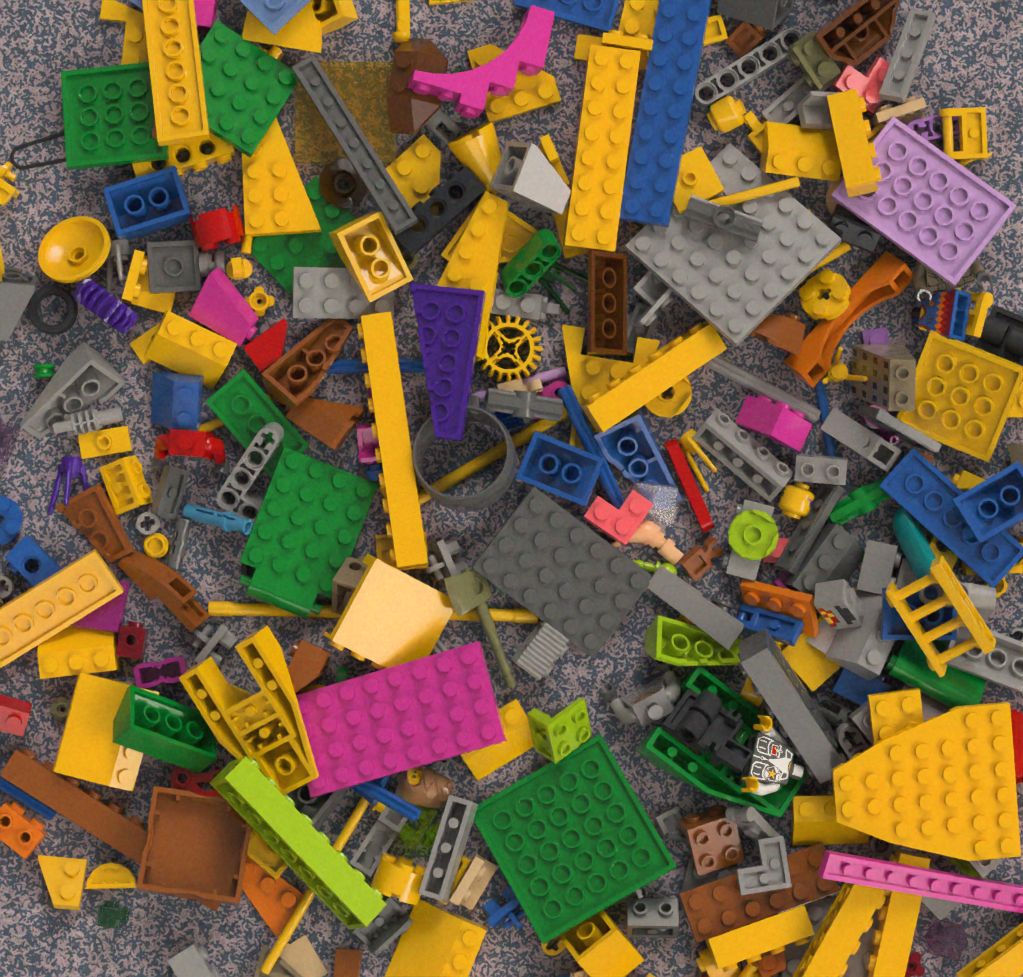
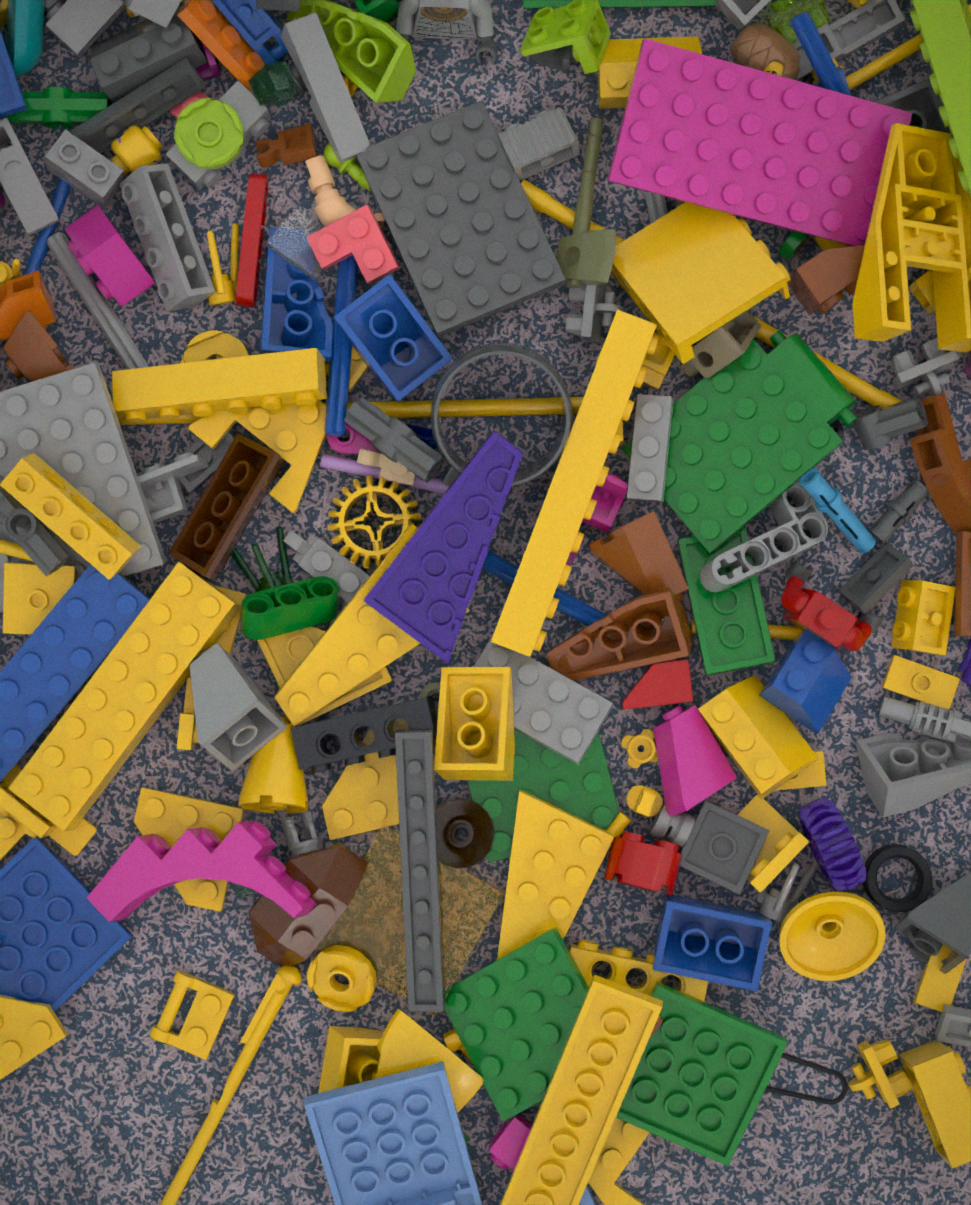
camera: 145 degrees left, 0 degrees up
(43, 370) = (948, 809): green bush -> none
(154, 528) = (932, 551): light grey bush -> none
(156, 545) = (927, 524): yellow plate -> none
(219, 591) = (880, 425): none -> dark grey piece
(359, 492) = (650, 448): none -> light grey plate
(367, 63) = (343, 961): none -> yellow tile
(373, 471) = (617, 463): blue plate -> none
(696, 240) = (70, 515): none -> yellow brick
(730, 589) = (273, 84): none -> clear green plate

